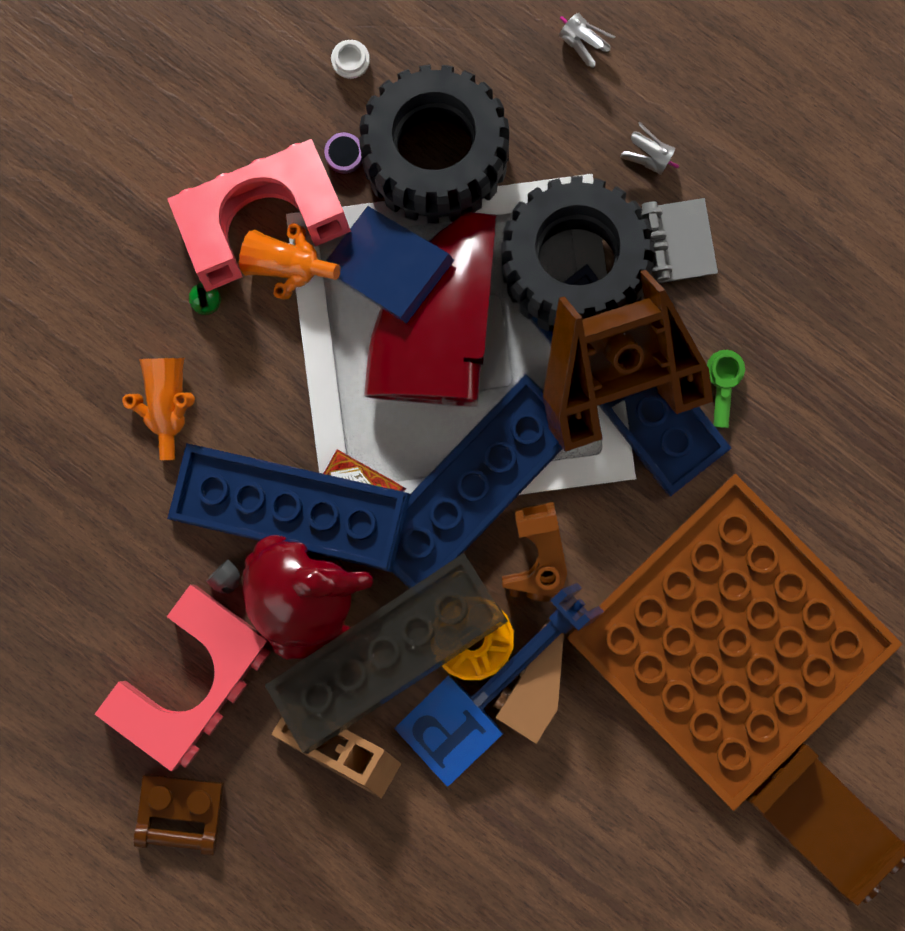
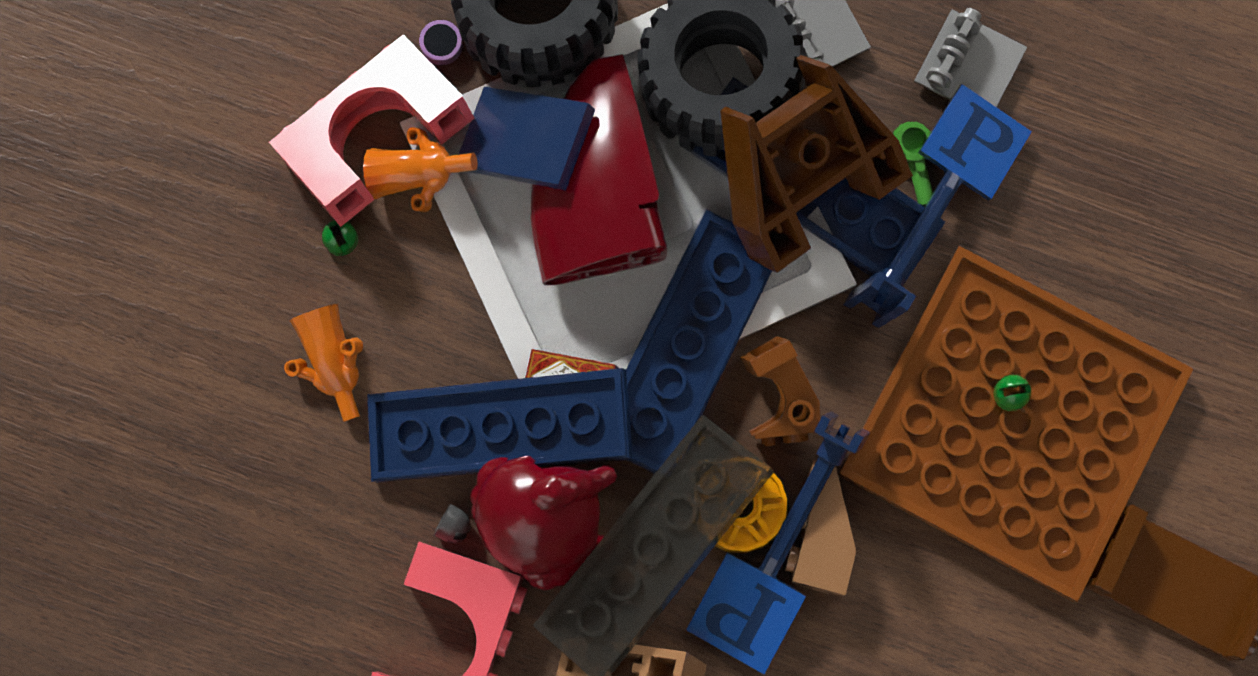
camera: 20 degrees left, 5 degrees down
(734, 624) = (1012, 402): none -> green hinge
(776, 390) = (972, 147): none -> piece
(800, 314) = (970, 56): none -> light grey hinge

